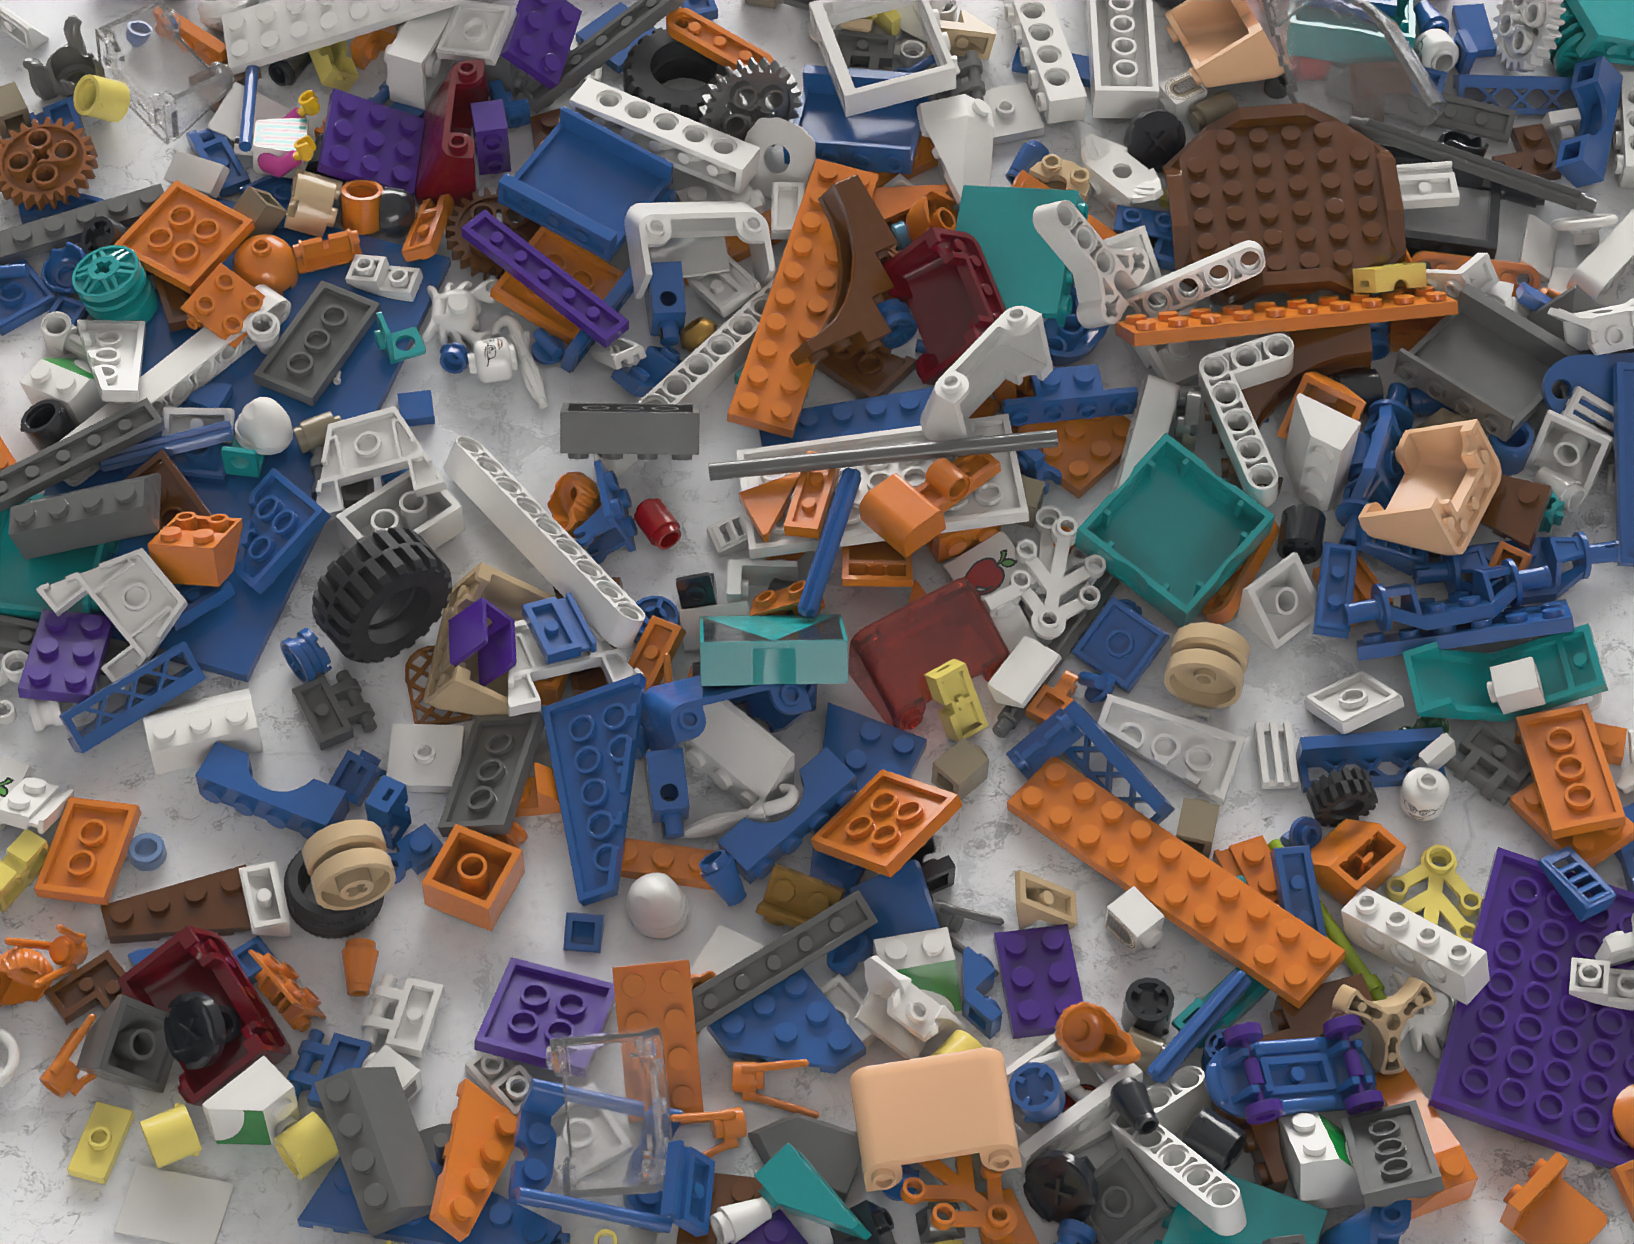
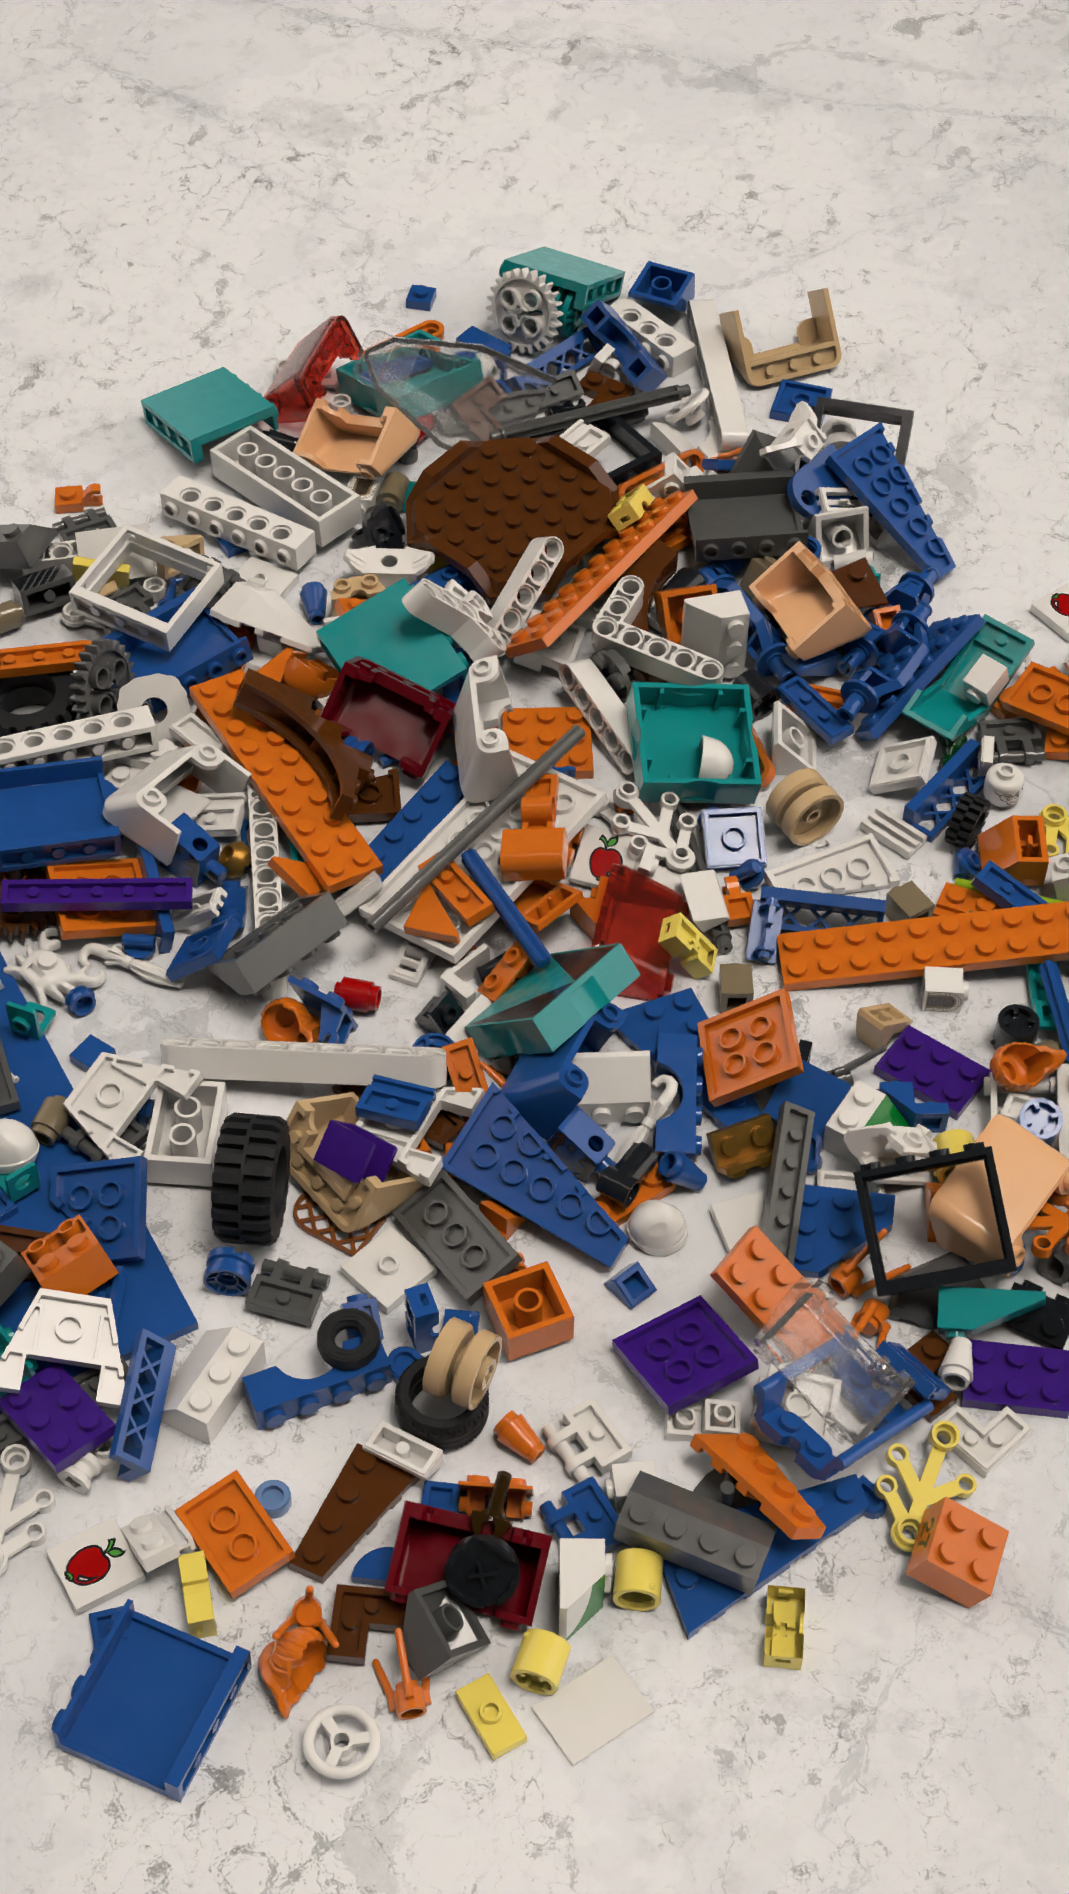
camera: 45 degrees left, 5 degrees down
(249, 996) = (494, 1508): none -> dark brown bar
(314, 759) = (348, 1359): none -> black tyre
(493, 360) = (114, 979): white head -> none
(578, 387) = (202, 949): none -> blue tile
(662, 841) = (624, 1179): none -> black piece
(720, 386) = (296, 875): none -> orange tile
(744, 440) = (359, 893): none -> white tile
(782, 1053) = (909, 1165): none -> black window
(1070, 395) = (532, 711): blue bracket -> none
(1172, 561) = (716, 759): none -> white helmet

